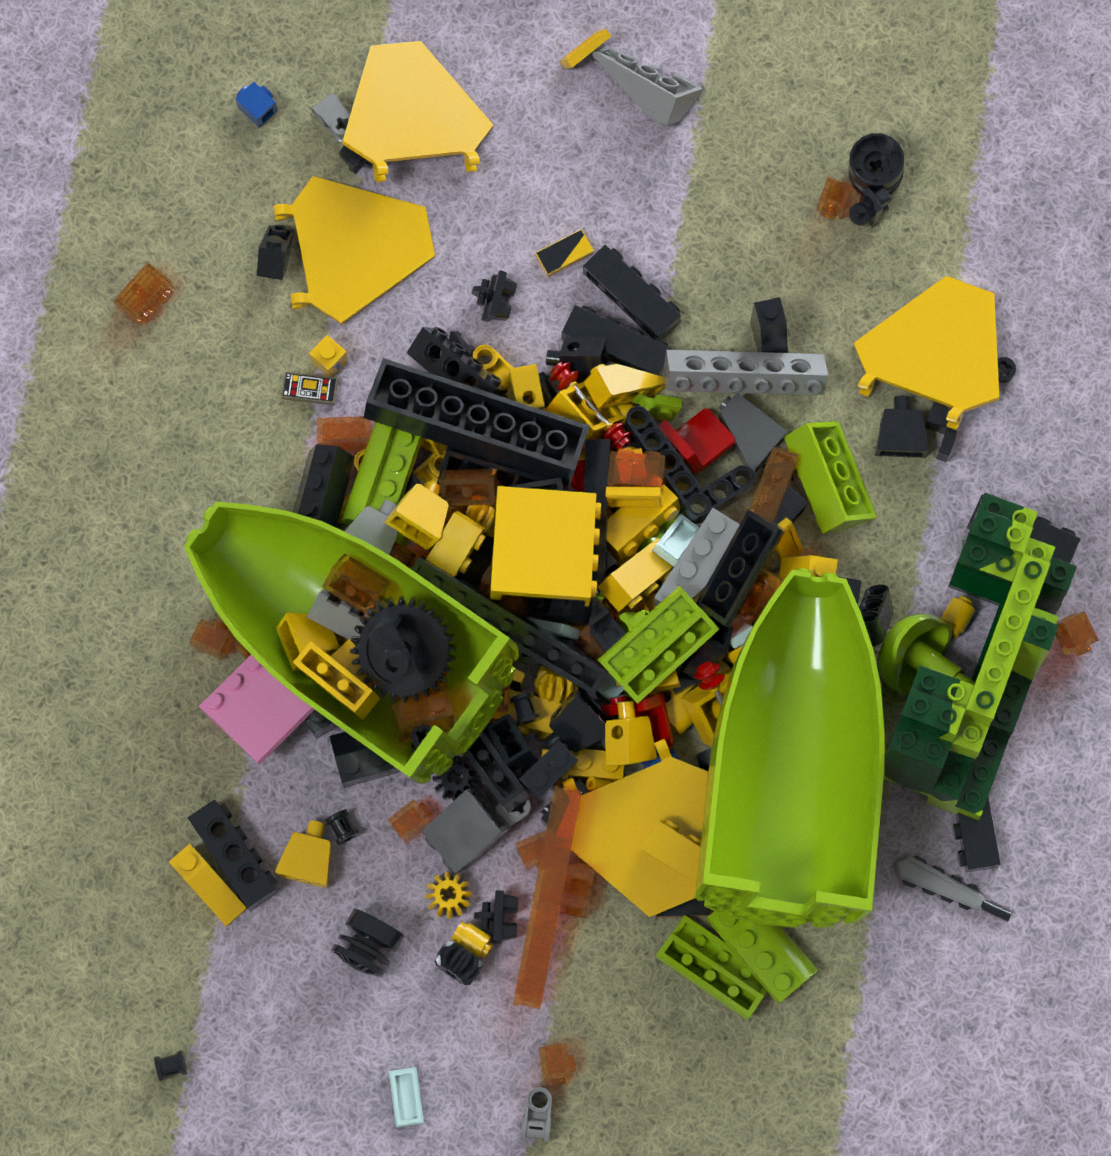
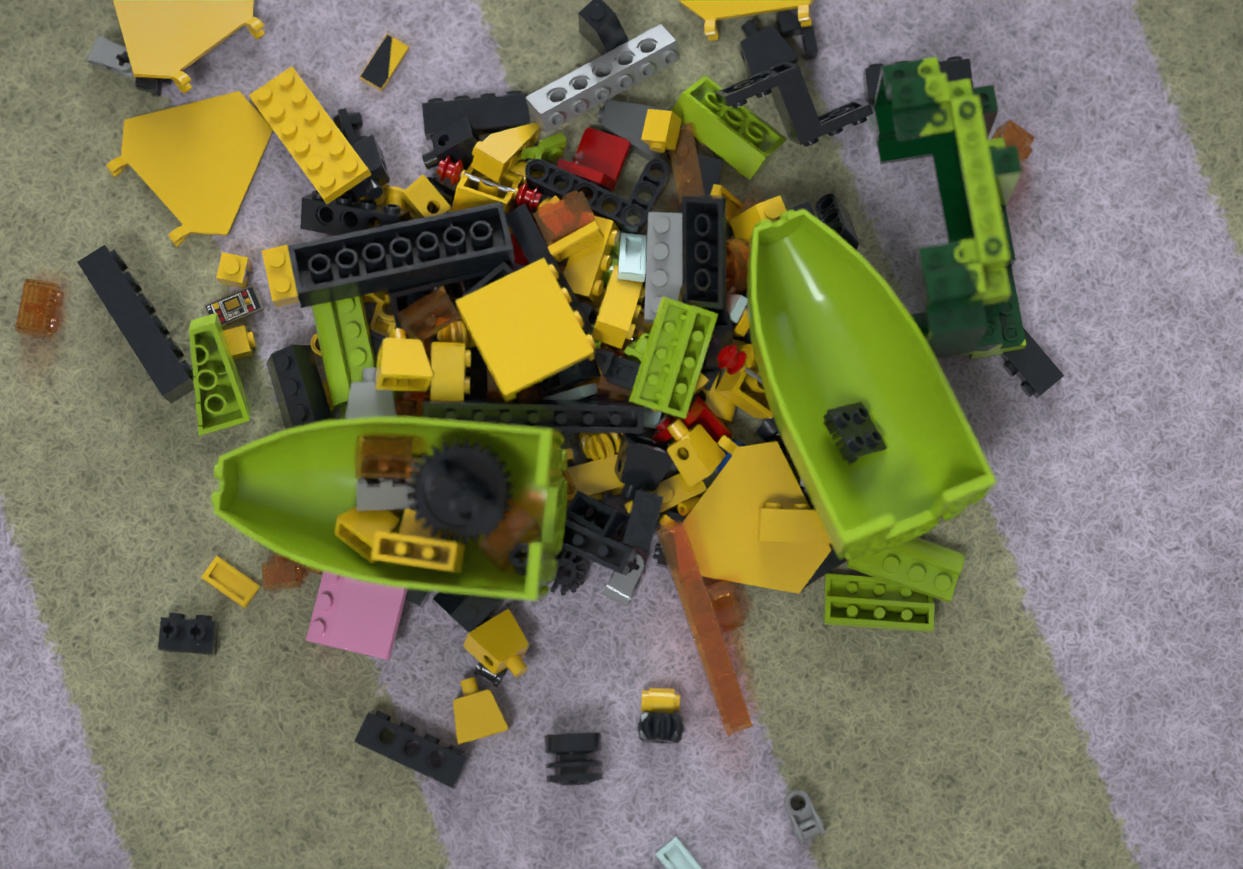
camera: 30 degrees left, 5 degrees up
(102, 644) = (188, 635): none -> black brick
(166, 620) = (231, 582): none -> yellow tile
(207, 885) = (406, 788): yellow slope -> none
(219, 360) = (134, 318): none -> black brick
(256, 103) = (35, 83): blue brick -> none
(256, 440) = (216, 381): none -> lime wedge
(275, 252) = (131, 205): black slope -> none
(291, 419) = (240, 342): none -> yellow brick
(345, 432) = (288, 329): clear orange brick -> none
(361, 807) = (499, 644): none -> yellow torso
(362, 382) = (280, 276): none -> yellow brick
(410, 820) = (546, 630): clear orange brick -> none
(450, 904) = (610, 669): yellow gear -> none
(461, 277) = (309, 135): none -> yellow plate
(465, 830) = (599, 611): dark grey brick -> none
(490, 331) = (373, 158): none -> black torso
(501, 929) = (666, 656): black hips -> none
(524, 708) = (588, 478): black bush -> none
(531, 850) = (665, 595): clear orange brick -> none
(556, 1064) = (793, 764): clear orange brick -> none
(632, 293) = (463, 64): black brick -> none
(768, 445) = (661, 130): none -> yellow brick
(779, 800) = (856, 431): none -> black hinge
(899, 489) = (794, 104): none -> black bracket
(912, 643) = (888, 237): lime piece -> none
(932, 880) = (1014, 421): light grey sword -> none
(958, 614) = (903, 185): yellow brick -> none

